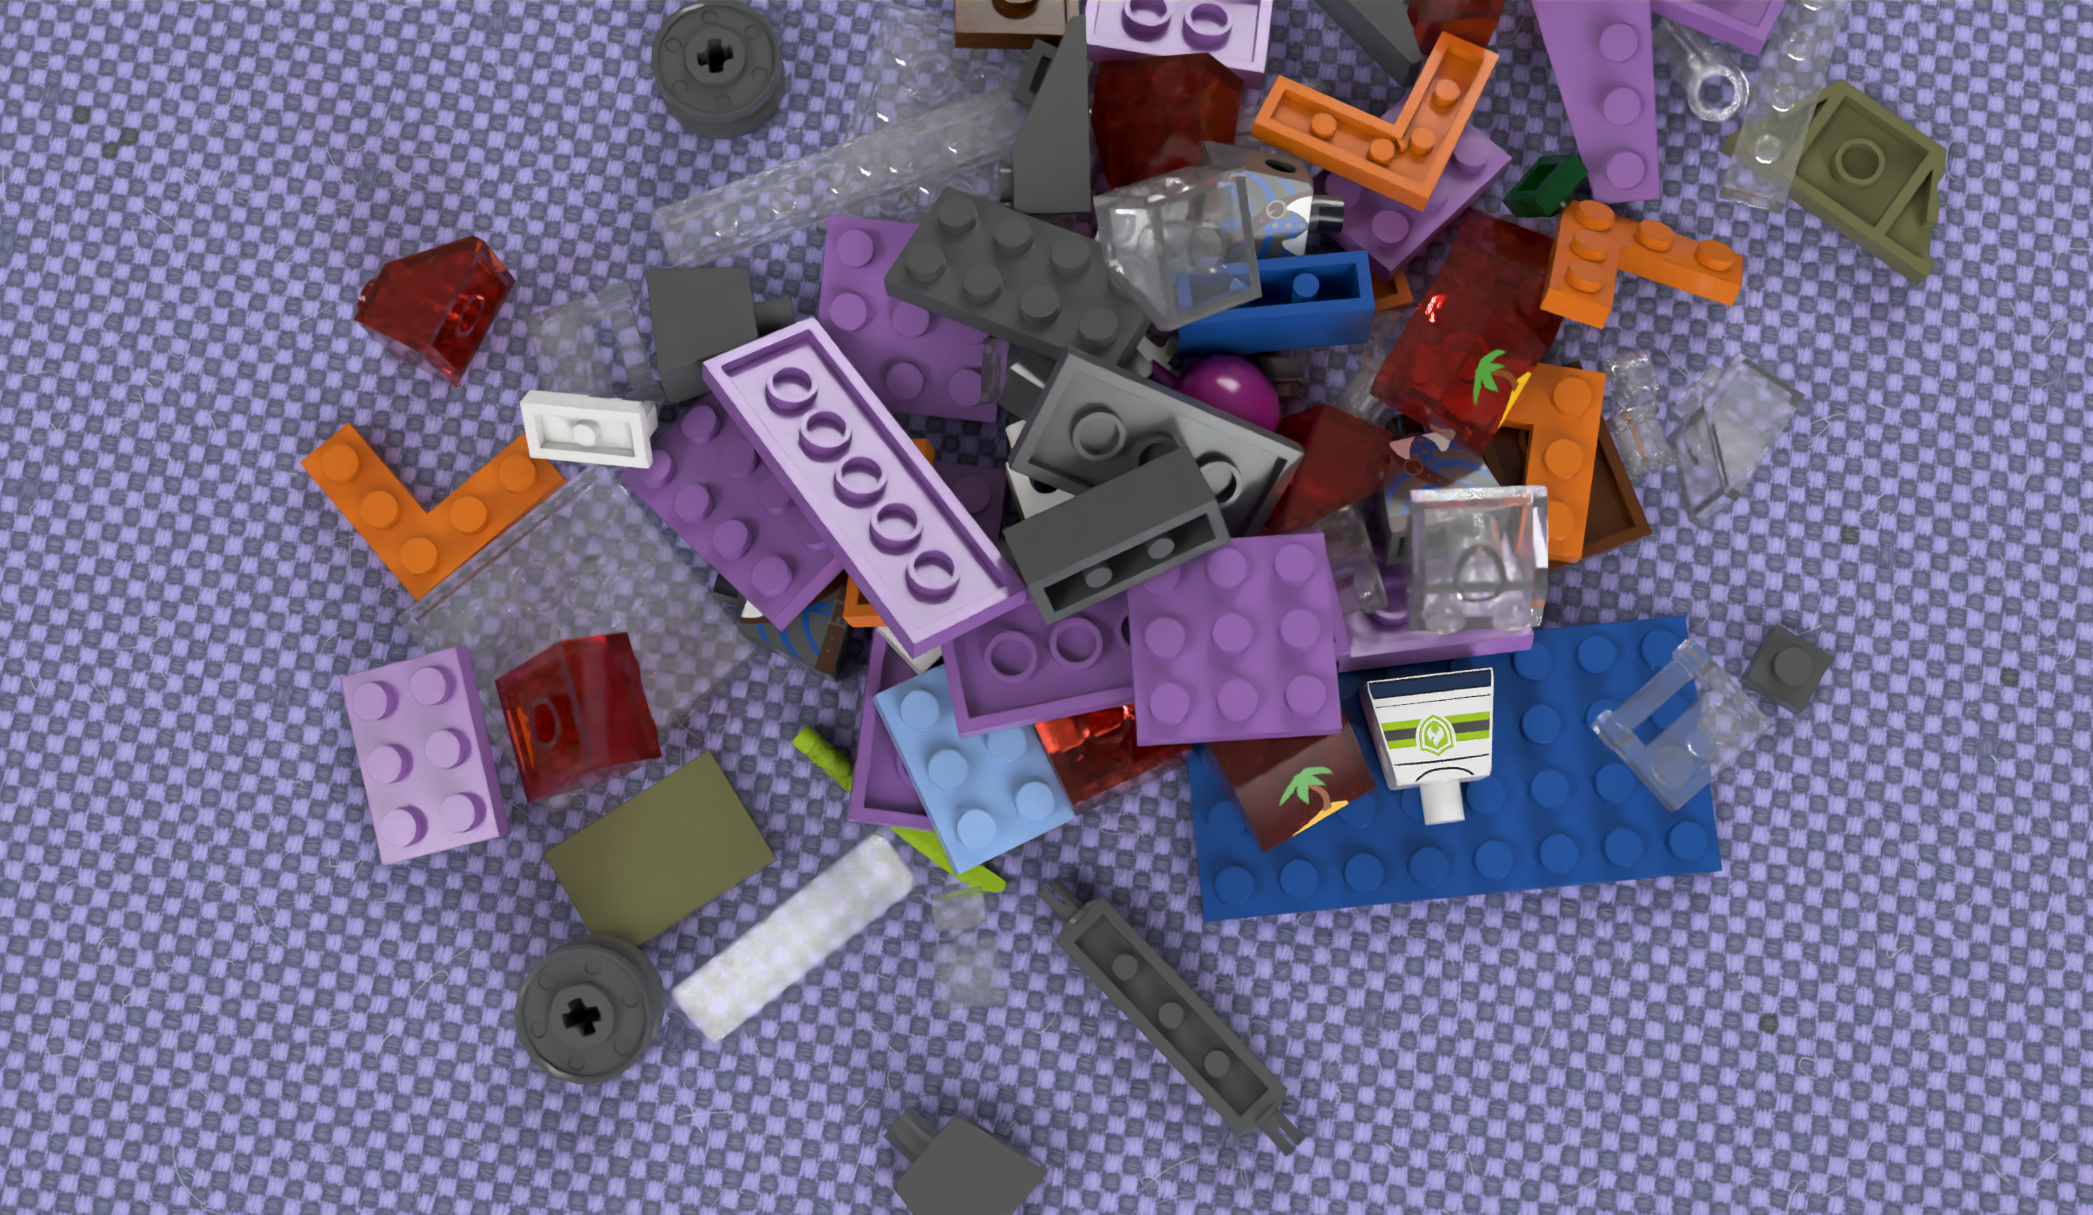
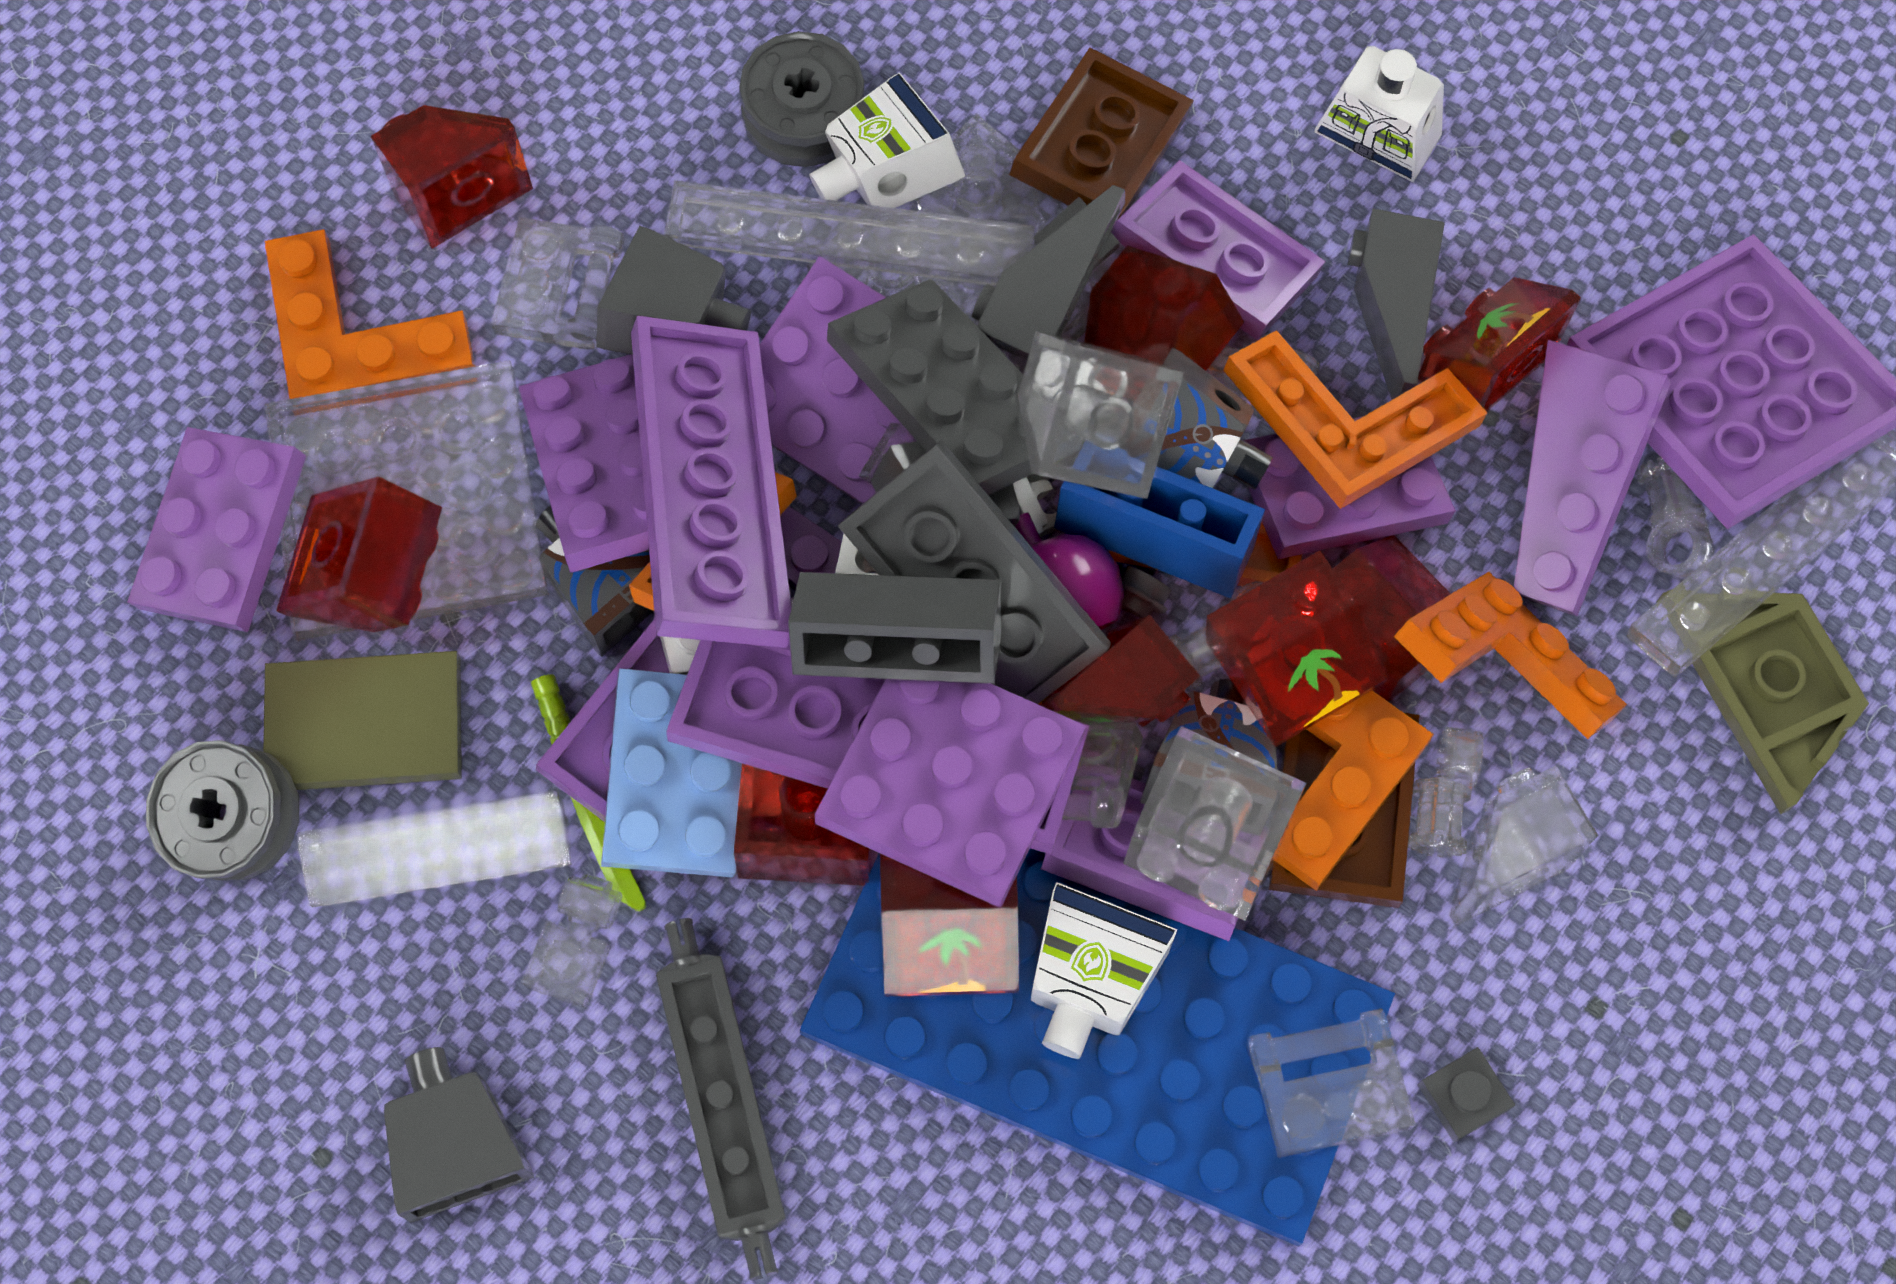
camera: 25 degrees right, 10 degrees down
(589, 428) = (515, 329): white plate -> none
(831, 79) = (888, 149): none -> white torso
(1546, 187) = (1473, 553): dark green plate -> none

